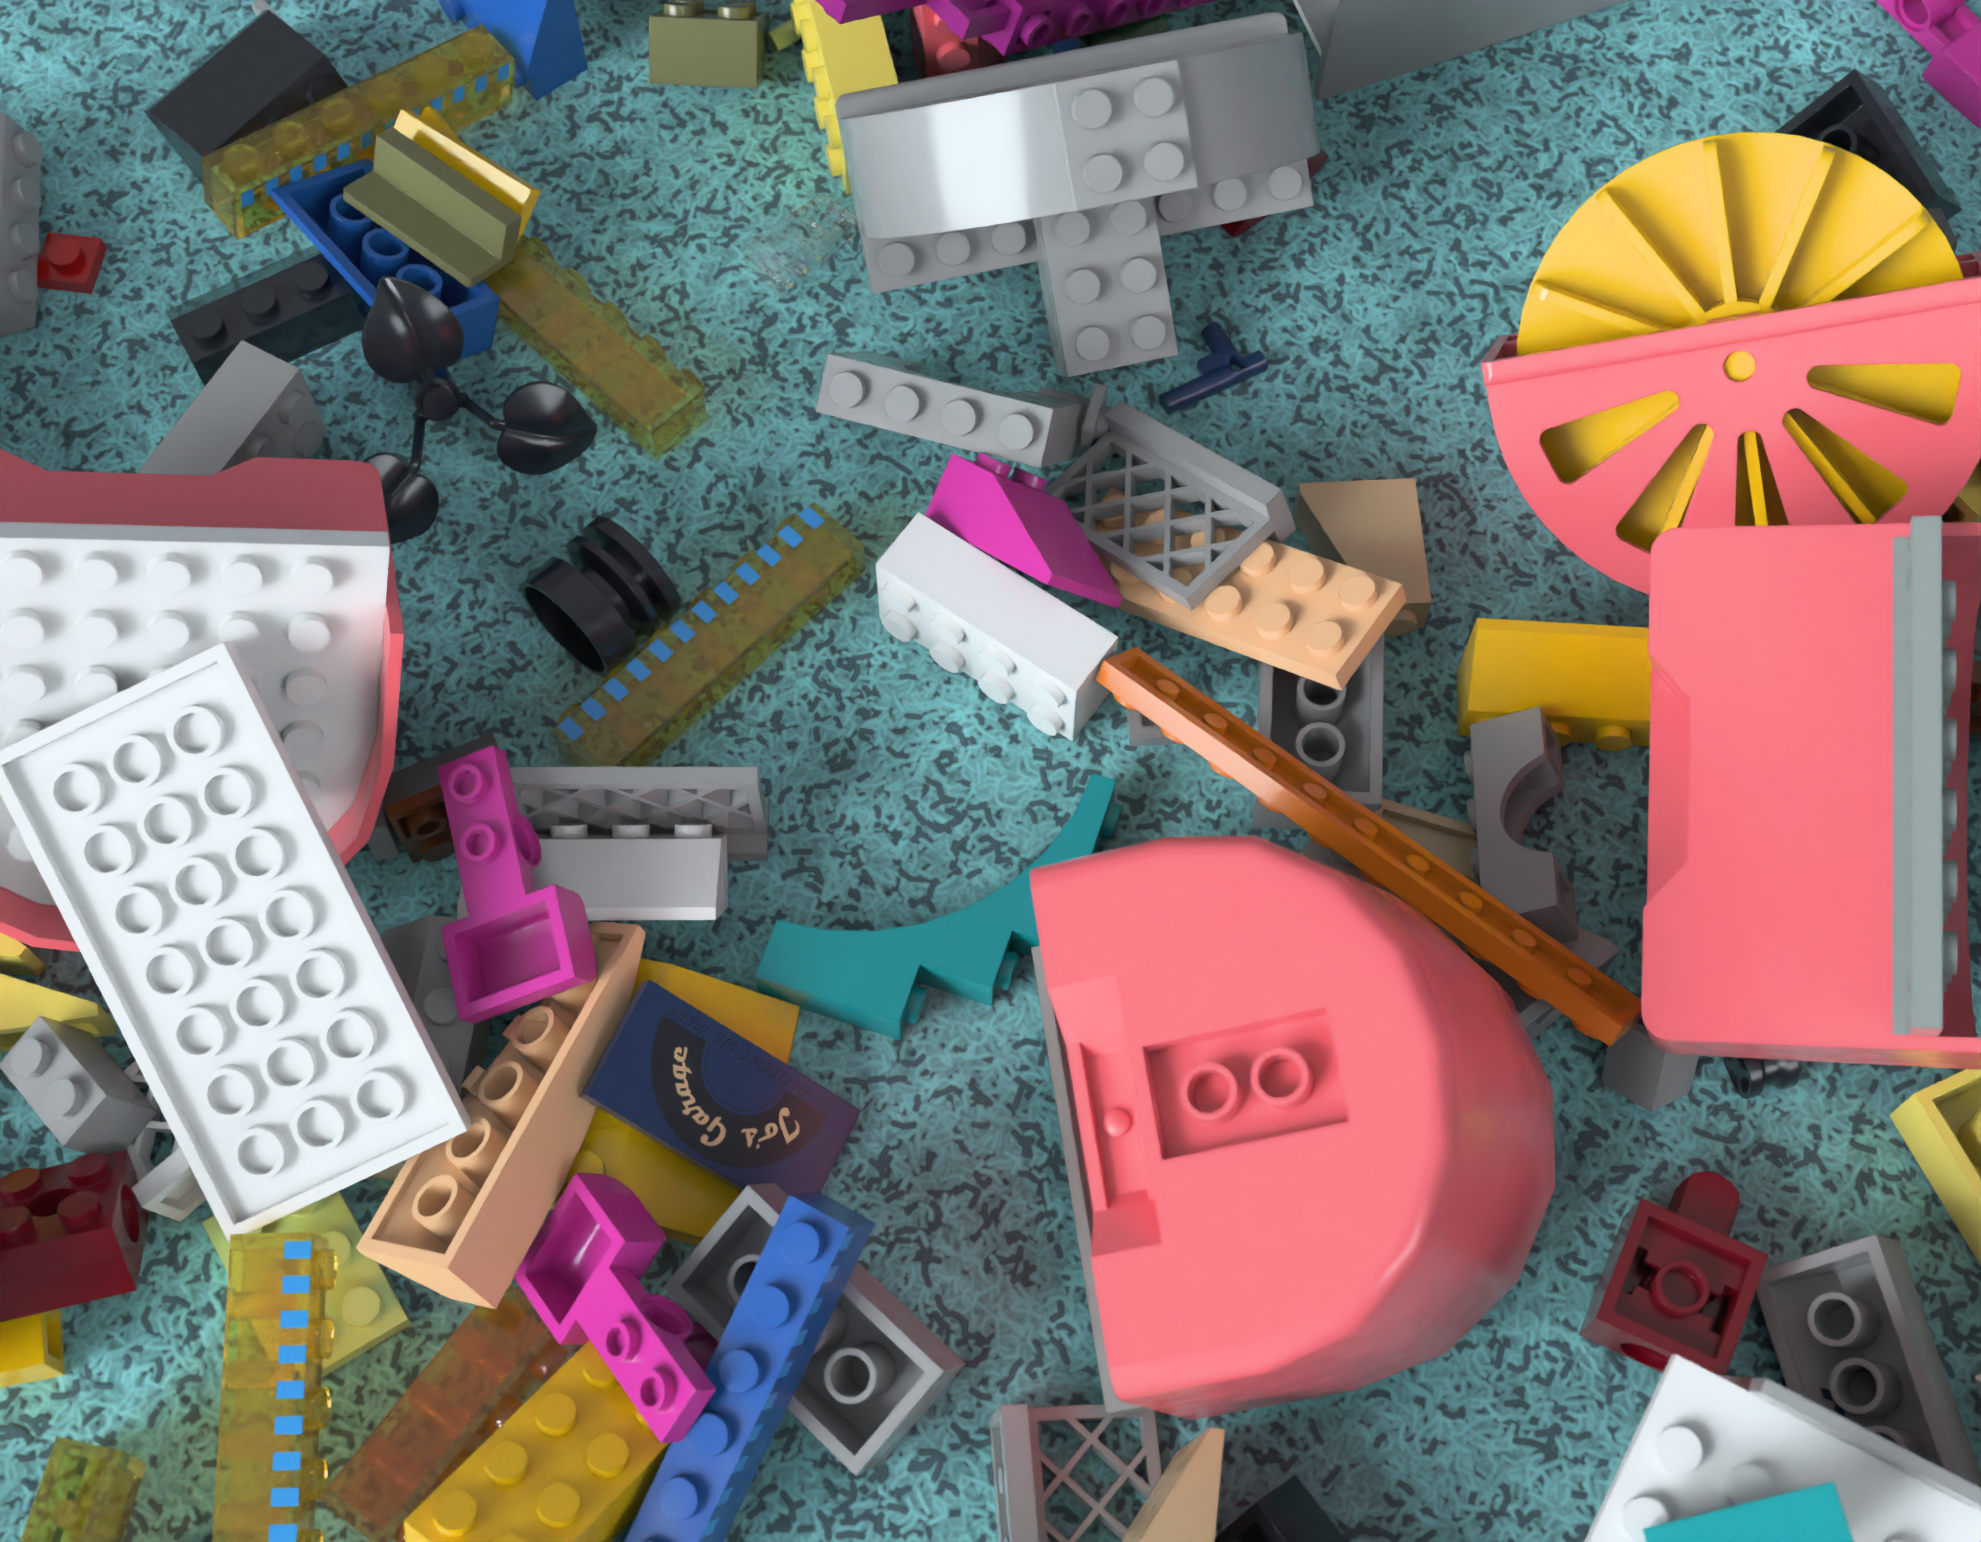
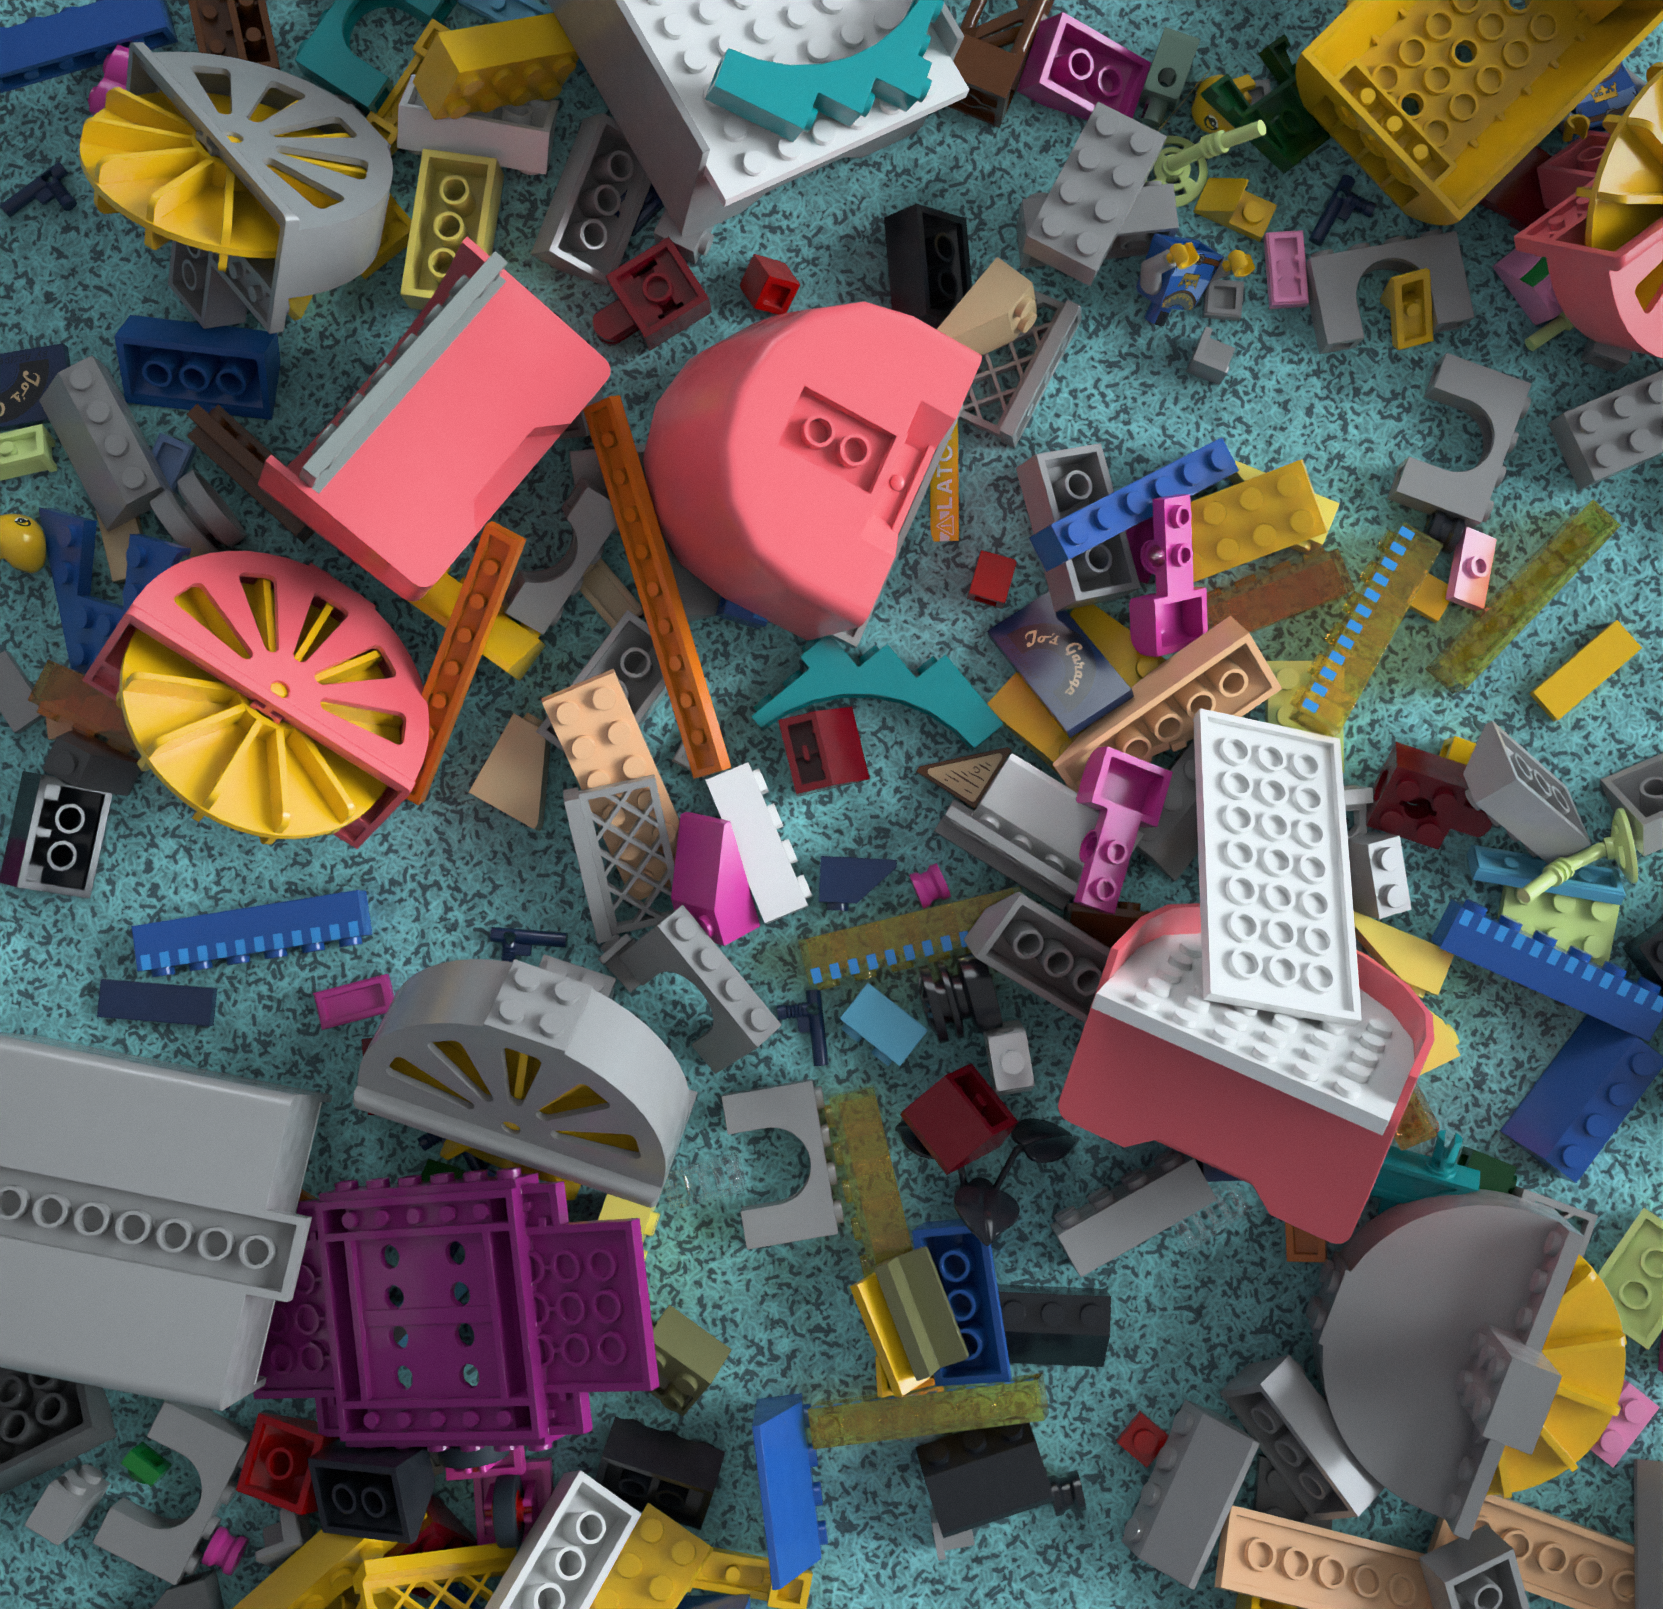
camera: 145 degrees left, 20 degrees up
(138, 153) = (1067, 1493): none -> black wheel
(480, 558) = (1009, 1059): none -> white torso
(512, 447) = (959, 1119): none -> dark red slope
(513, 681) = (1040, 952): none -> light grey slope
(689, 520) = (883, 1025): none -> medium azure brick
(730, 721) = (929, 885): none -> dark pink wheel
(738, 366) = (810, 1210): none -> light grey arch
(767, 892) = (966, 776): none -> tile
(787, 481) = (809, 1023): none -> dark blue hose
(843, 670) = (850, 879): none -> dark blue slope
(899, 1177) = (991, 579): none -> red panel
(989, 800) = (823, 750): none -> dark red slope
(1057, 1290) = (945, 494): none -> yellow sticker
(1367, 202) = (354, 1001): none -> dark pink tile
(1525, 213) = (251, 931): none -> blue brick
(1525, 1426) = (769, 285): none -> red panel
(1559, 607) = (465, 641): none -> orange plate
(1594, 79) = (157, 1002): none -> dark blue tile

